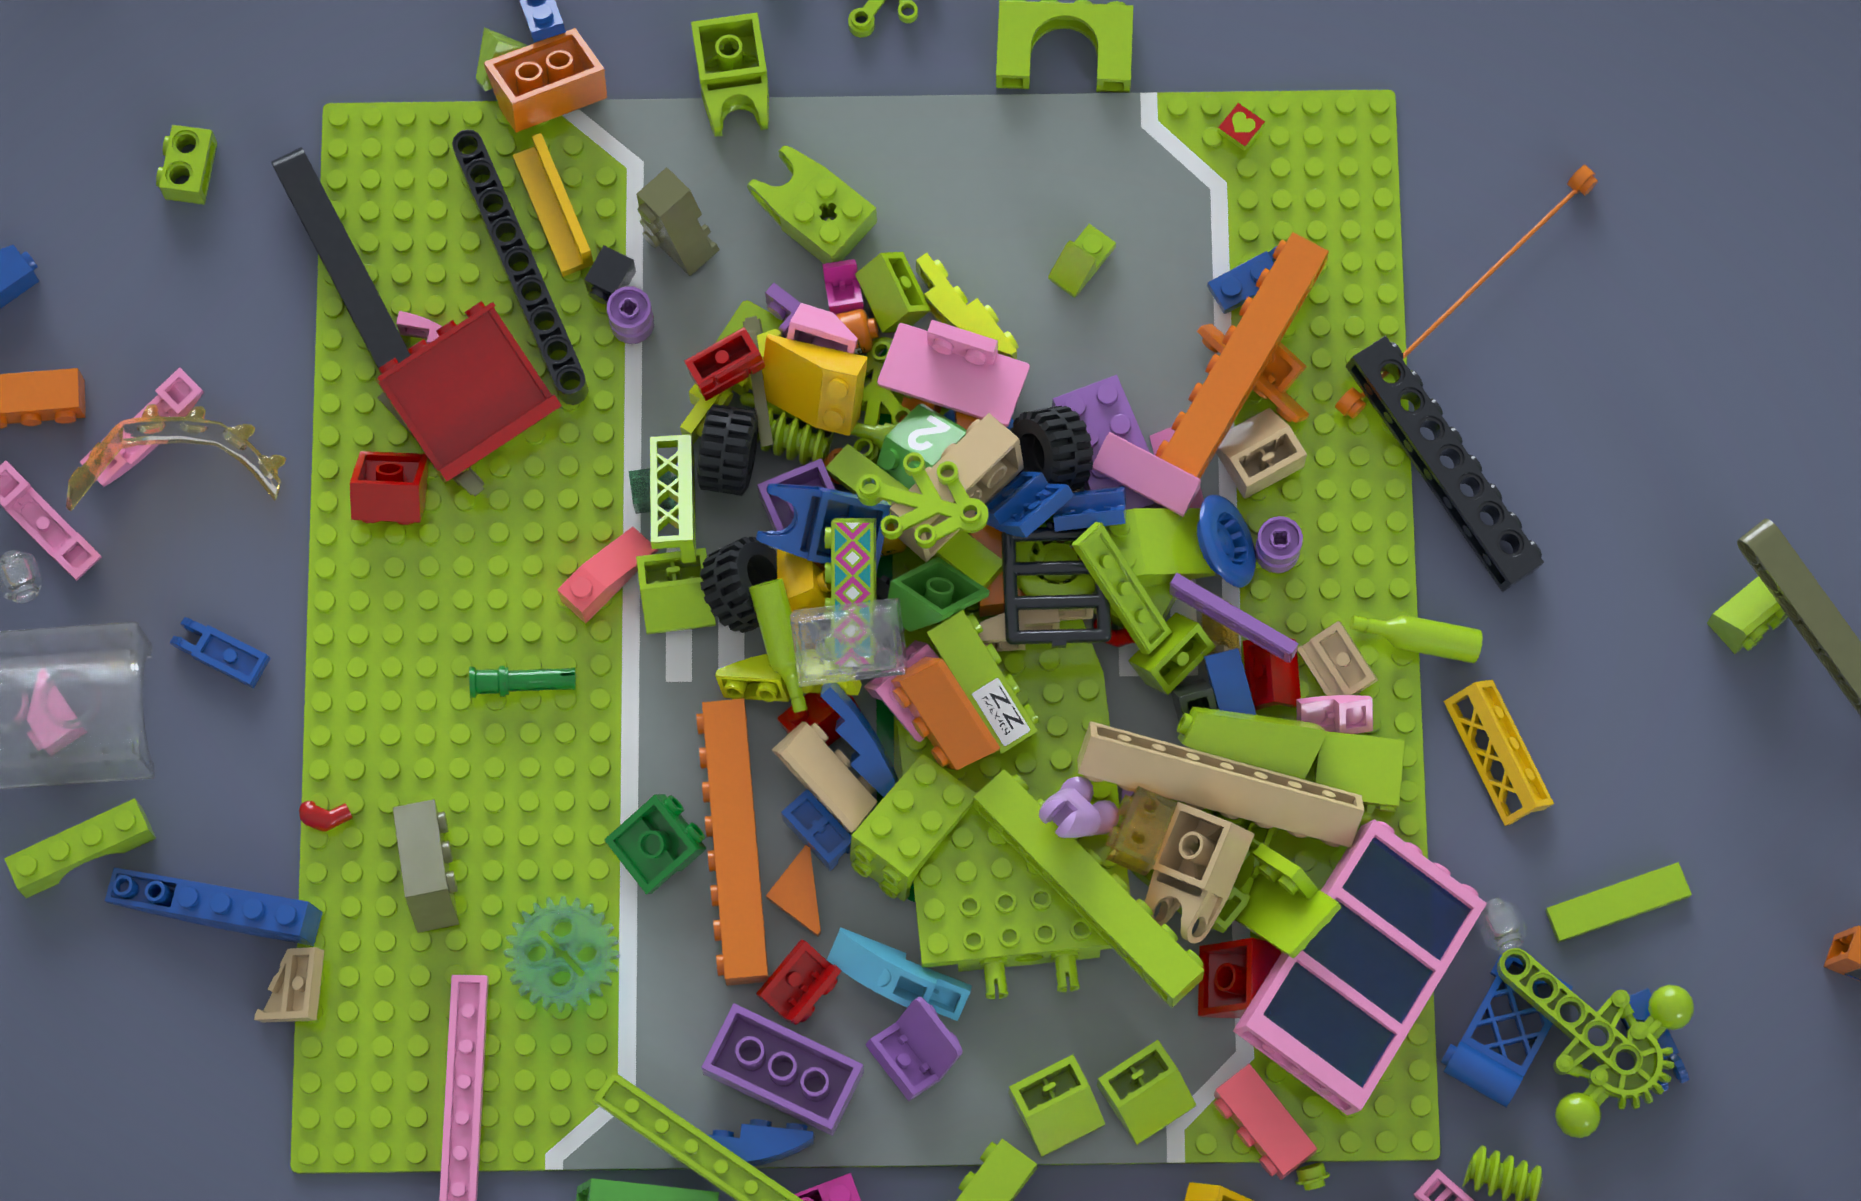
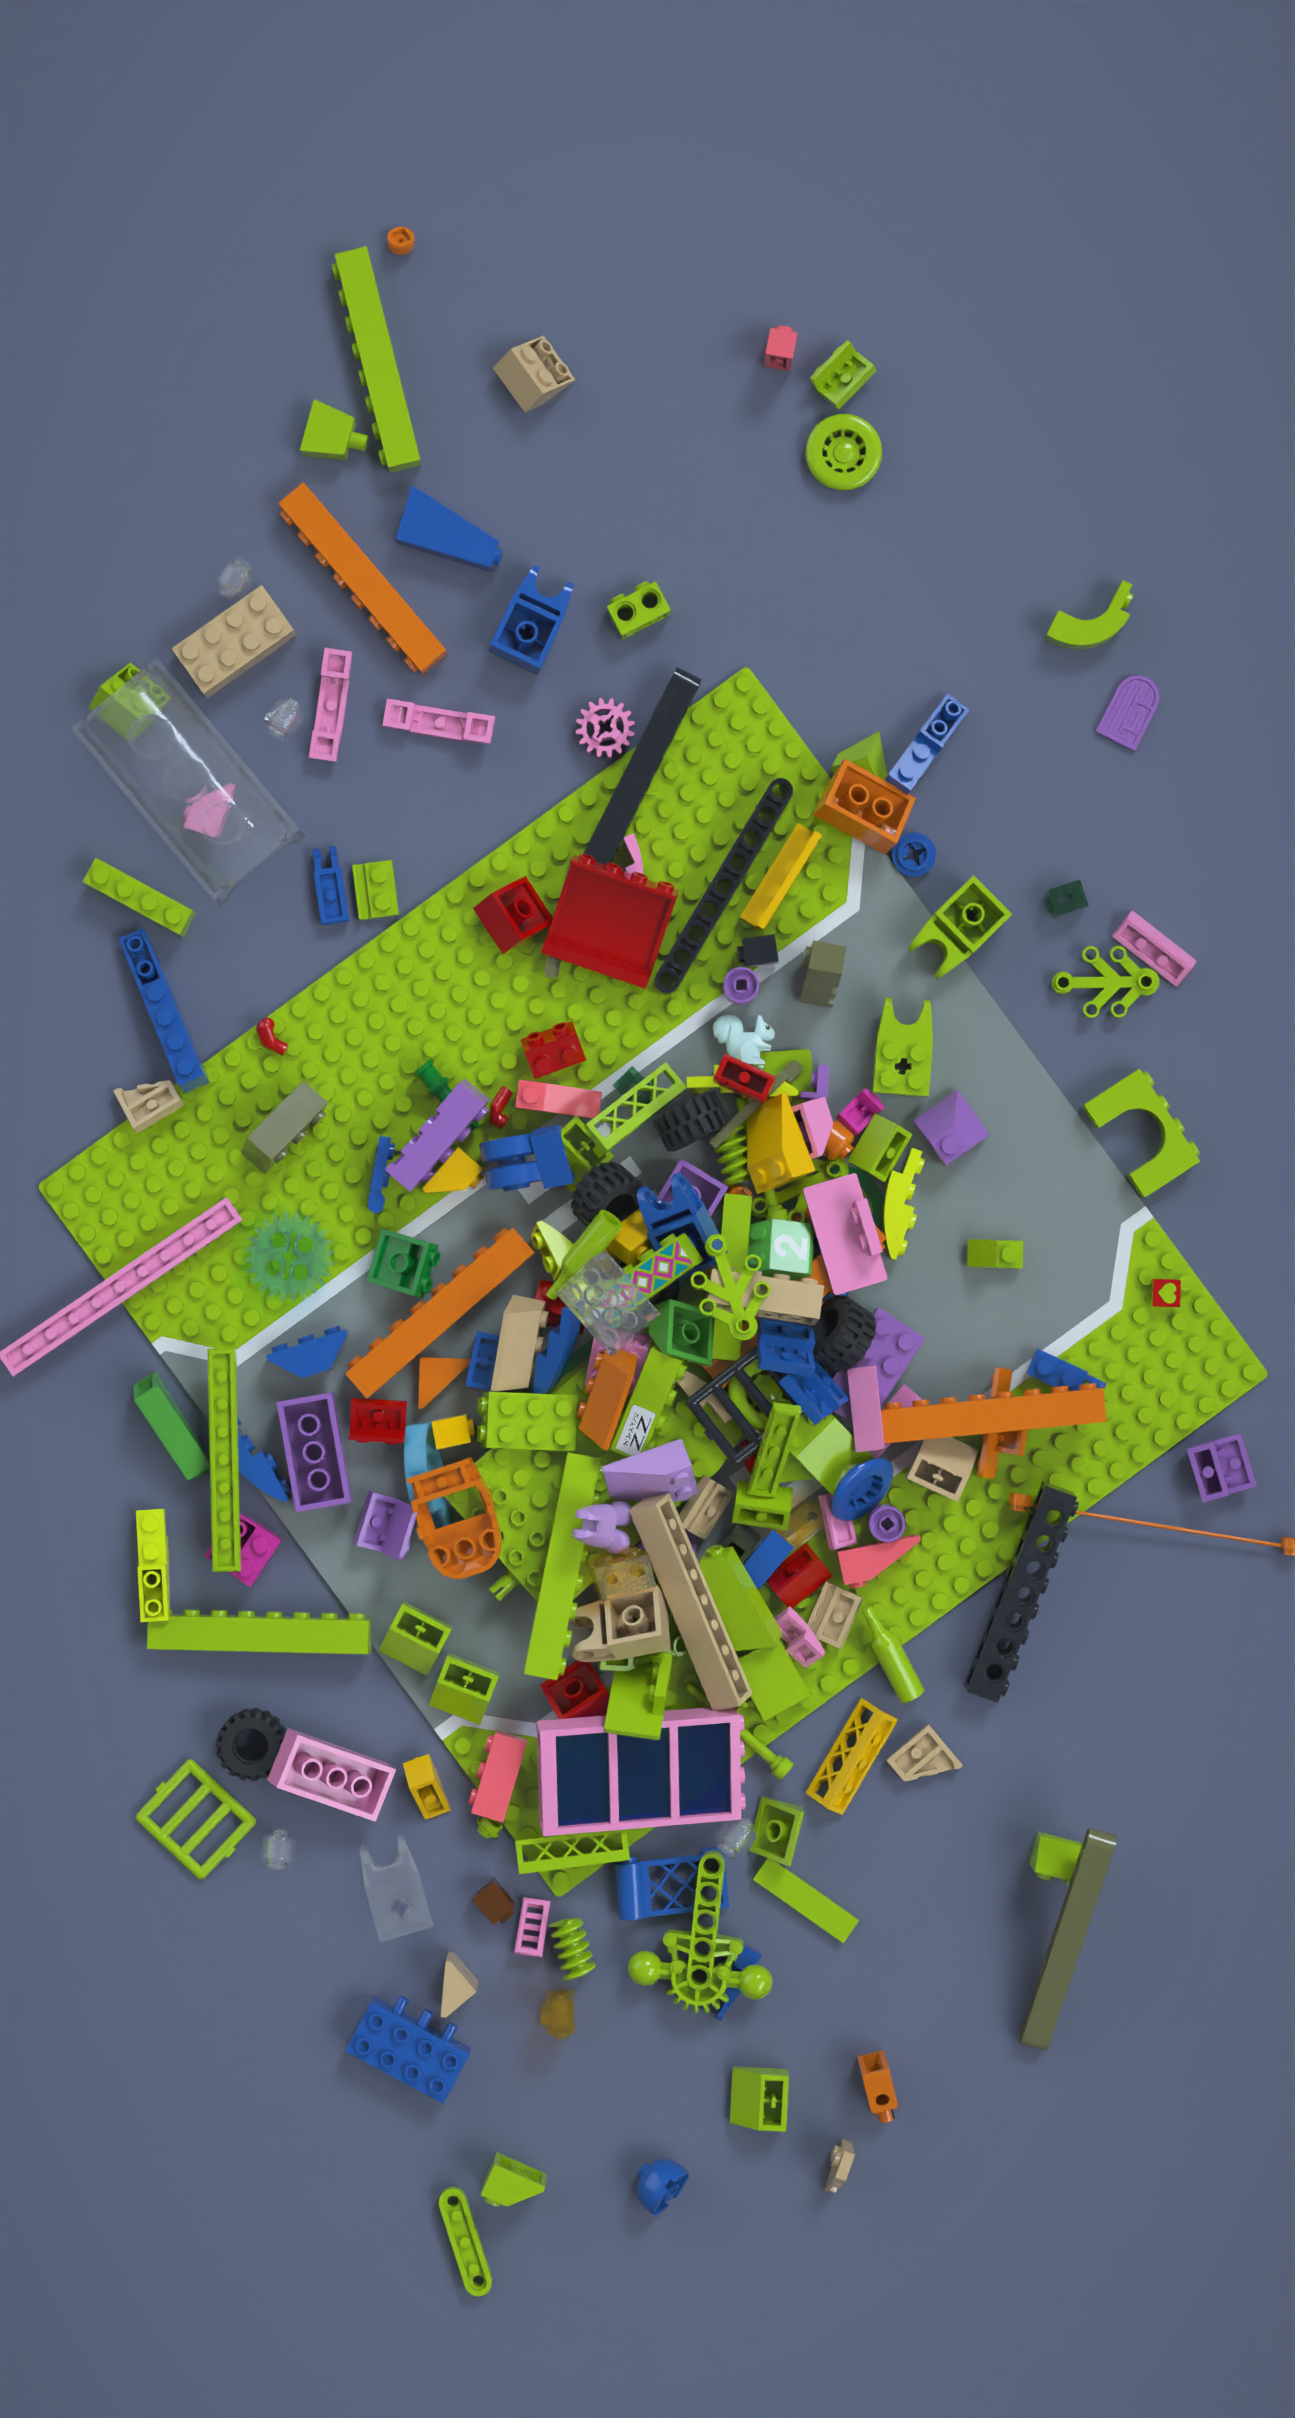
camera: 50 degrees right, 15 degrees up
(119, 274) = (534, 614): none -> blue brick
(169, 430) = (461, 754): clear yellow piece -> none
(259, 610) = (375, 890): none -> lime plate
(262, 279) = (595, 720): none -> bright pink gear
(547, 803) = (380, 1176): none -> blue hinge
(551, 706) = (439, 1135): none -> medium lavender wedge
(553, 542) = (553, 1049): none -> red bracket
(568, 637) = (496, 1107): none -> red arm
(606, 726) = (455, 1174): none -> yellow slope
(619, 63) = (918, 842): none -> blue gear
(643, 659) = (513, 1169): none -> blue wheel
(660, 607) = (551, 1157): none -> blue hinge
(667, 358) = (741, 1044): none -> light aqua animal
(678, 1006) = (311, 1354): none -> blue slope
(866, 911) = (453, 1431): none -> yellow slope
(924, 218) = (950, 1128): none -> medium lavender slope
(994, 973) = (466, 1545): none -> orange slope
(1057, 727) = (652, 1474): none -> lavender slope
(1131, 708) = (705, 1508): none -> tan plate
(1233, 618) = (810, 1531): medium lavender tile -> none
(1253, 598) = (838, 1532): none -> bright pink tile
(1305, 591) = (870, 1559): none -> coral slope
(1410, 1106) = (571, 1860): none -> lime fence
(1455, 189) = (1221, 1467): none -> medium lavender brick
(1456, 828) = (779, 1765): none -> lime piece
(1525, 876) = (777, 1829): none -> lime slope
(1548, 679) = (923, 1756): none -> tan wing
(1801, 1092) = (759, 2098): none -> lime slope

